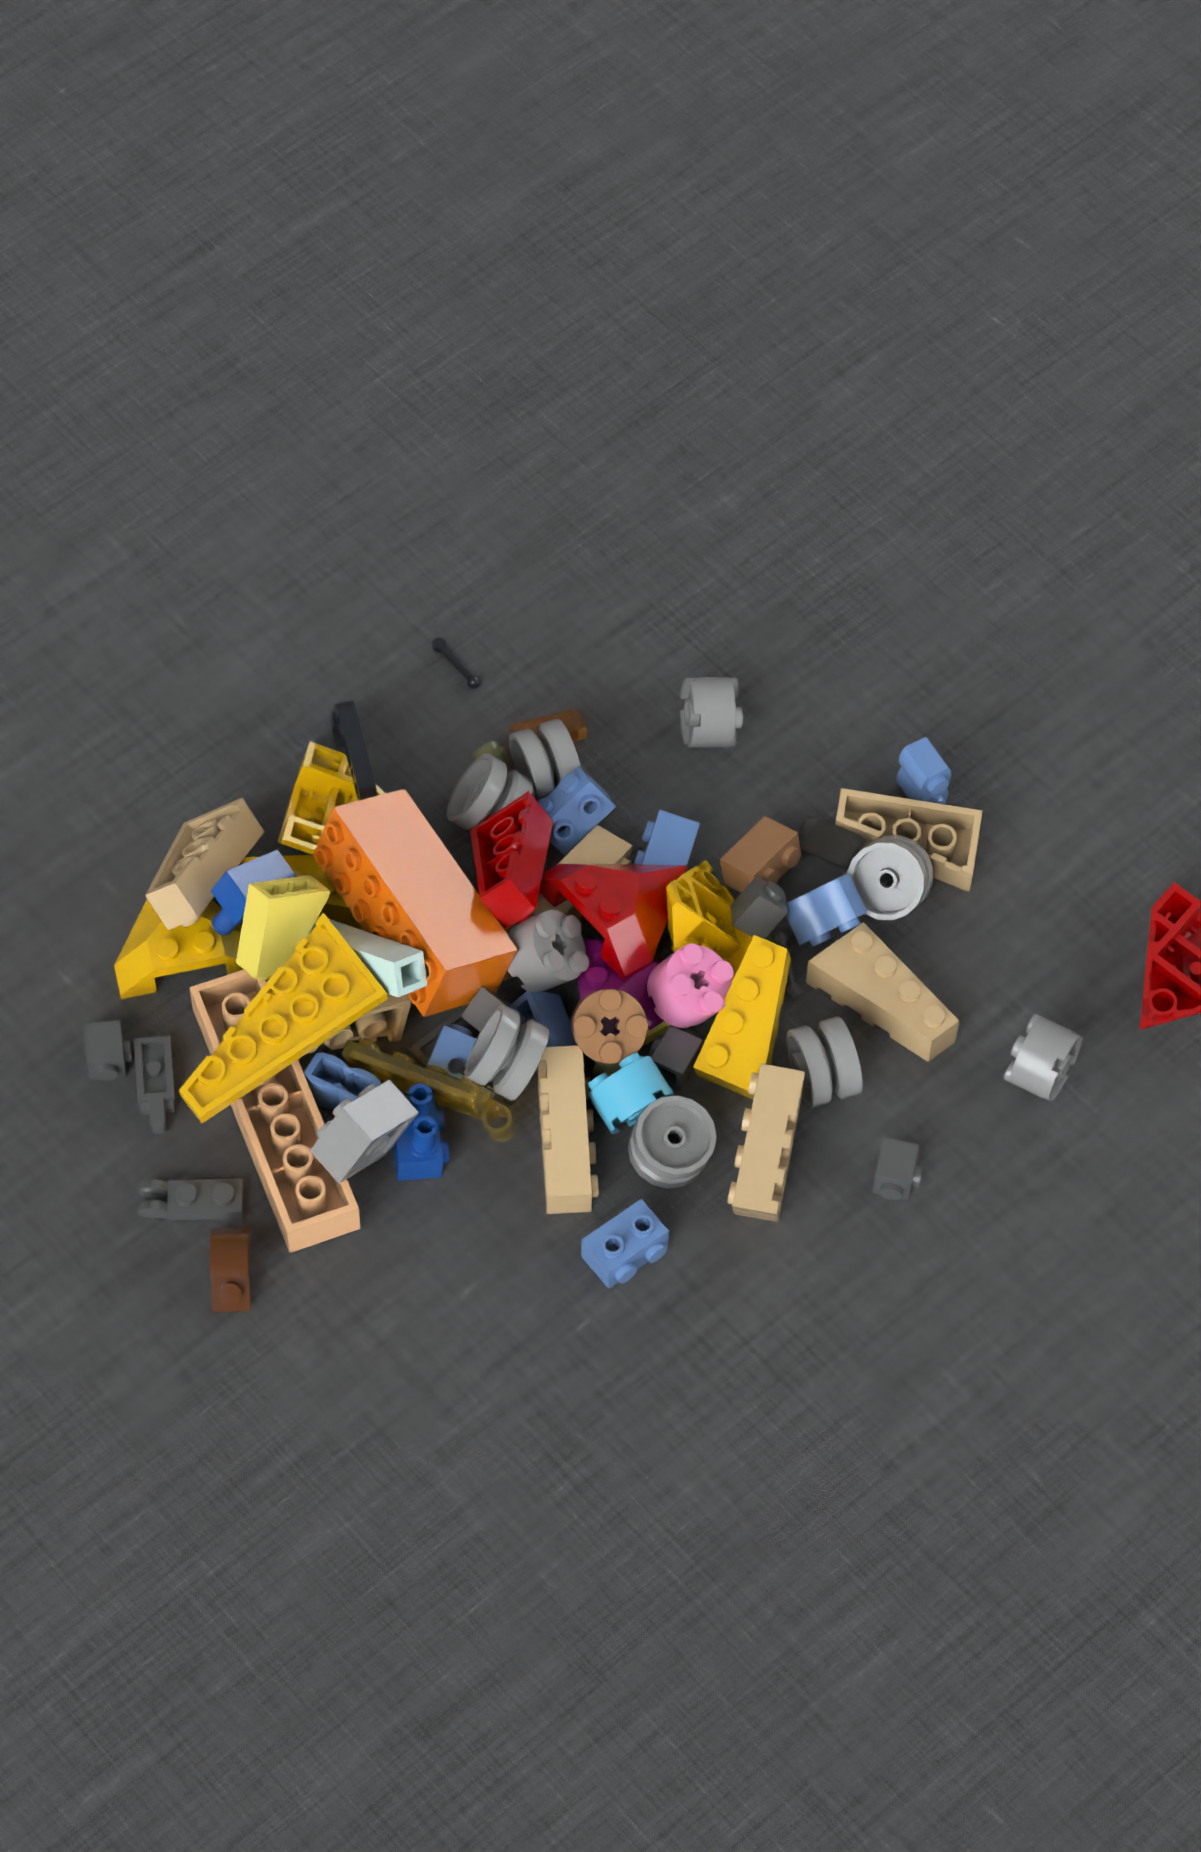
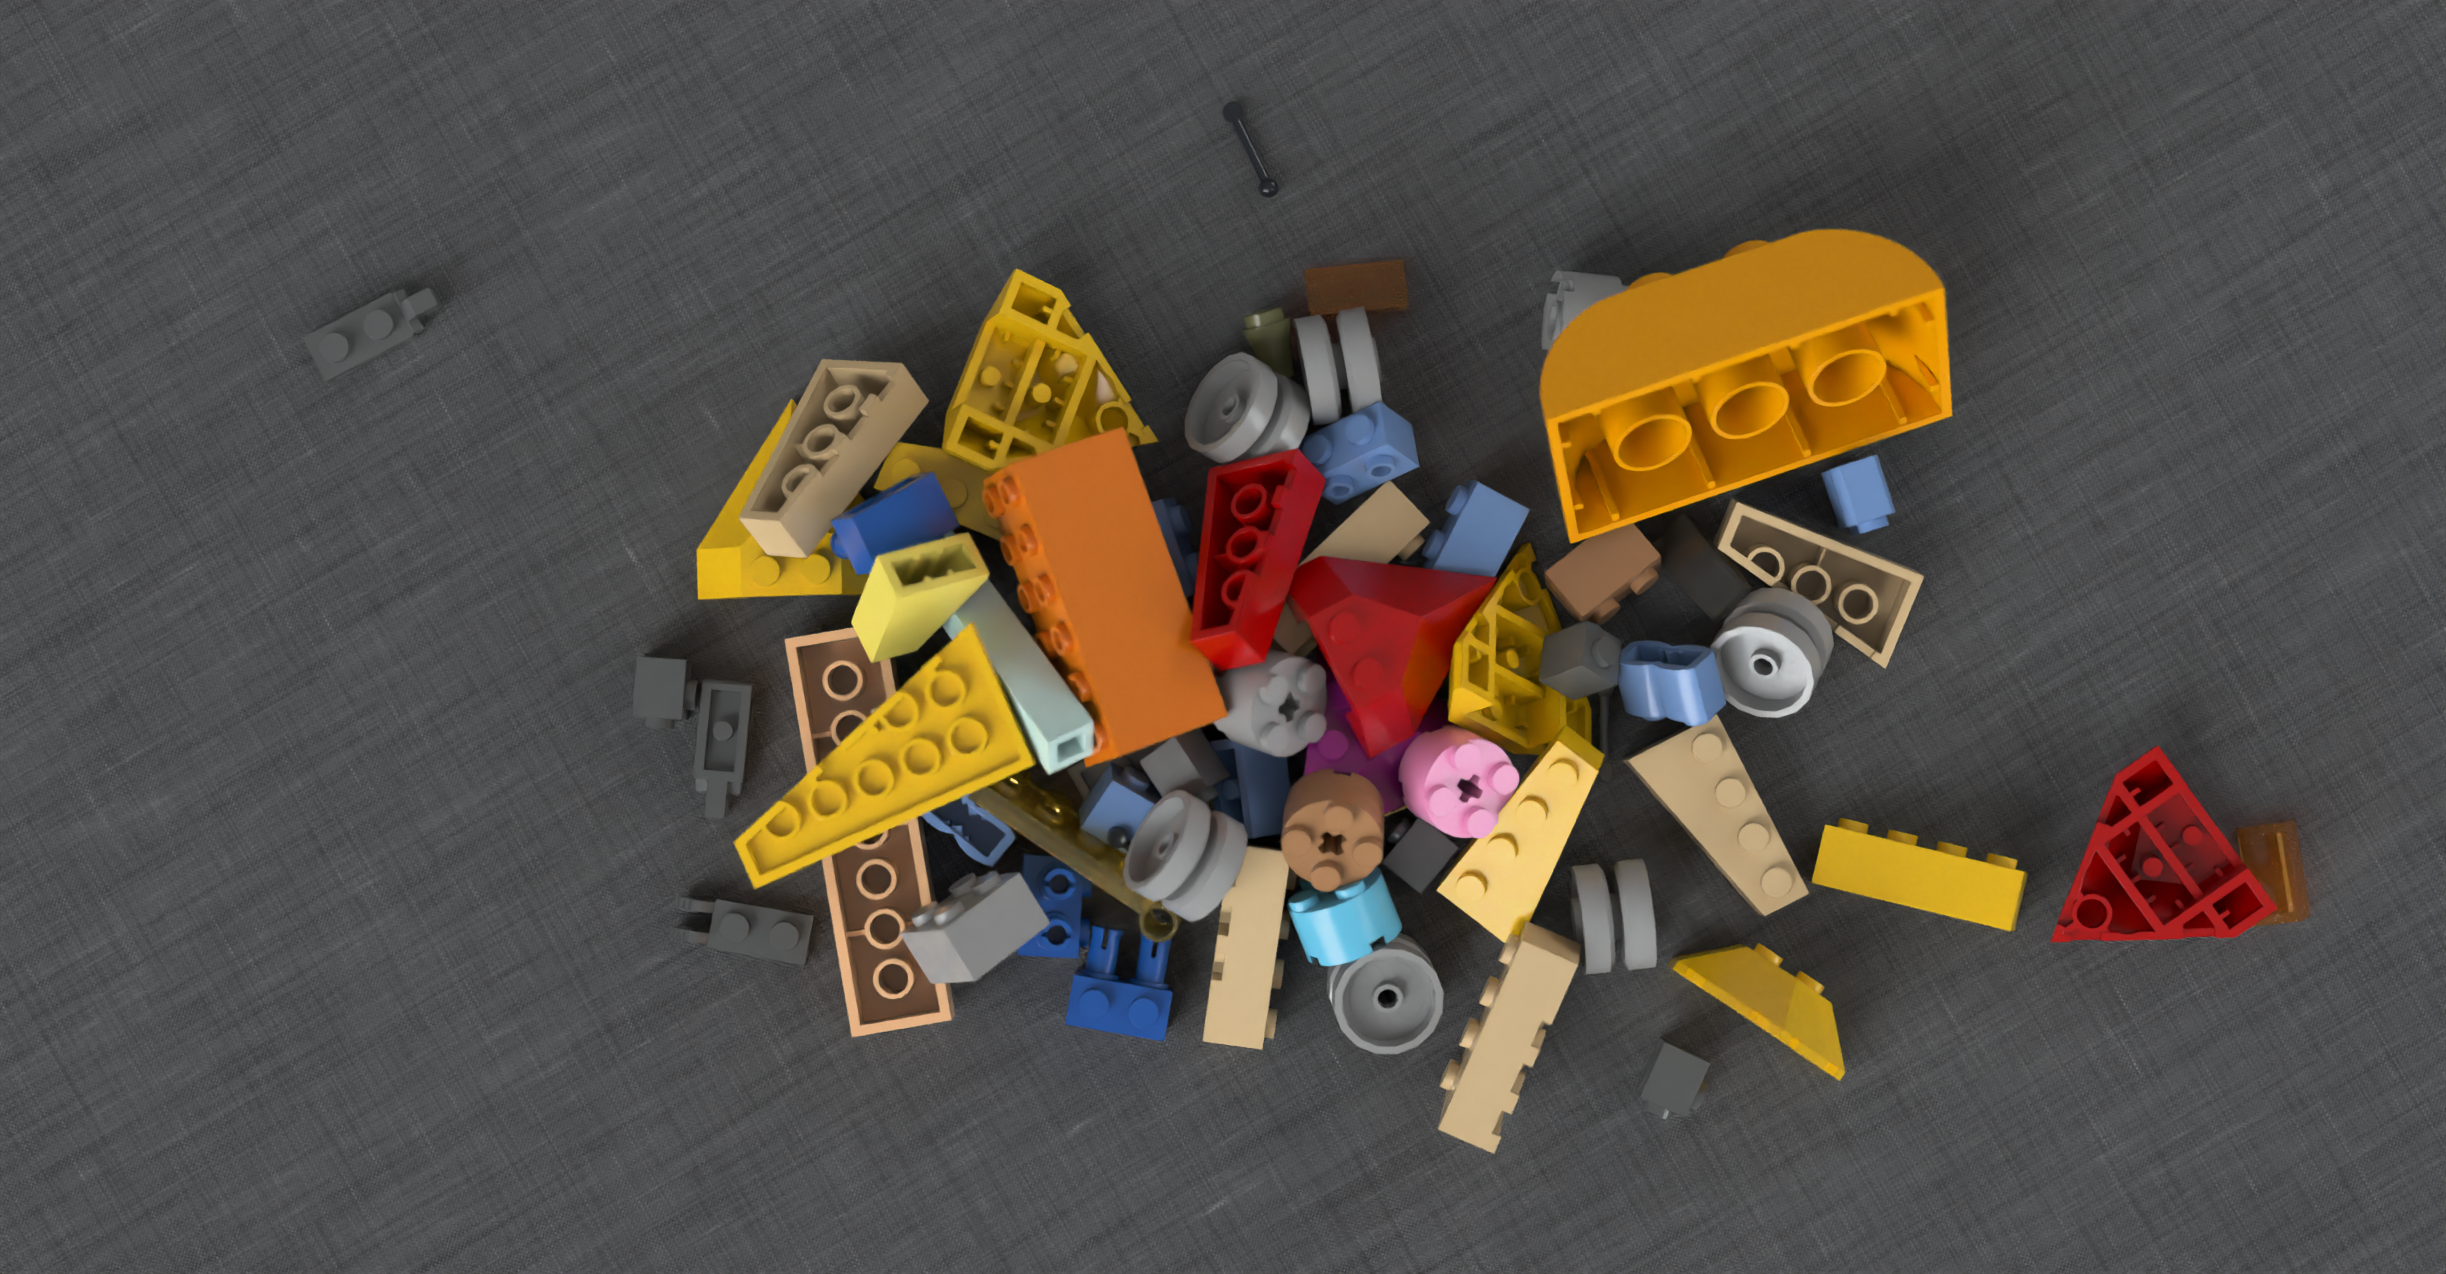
camera: 10 degrees right, 30 degrees up
(230, 1269) = (774, 1047): reddish brown brick -> none
(348, 732) = (1072, 299): black beam -> none
(480, 1190) = (1117, 1004): none -> blue brick
(625, 1244) = (1293, 1117): medium blue brick -> none
(825, 698) = (1741, 373): none -> light orange brick
(956, 1086) = (1770, 998): none -> yellow wedge
(1007, 1003) = (1919, 876): none -> yellow wedge
(1043, 1058) = (1909, 967): light grey brick -> none

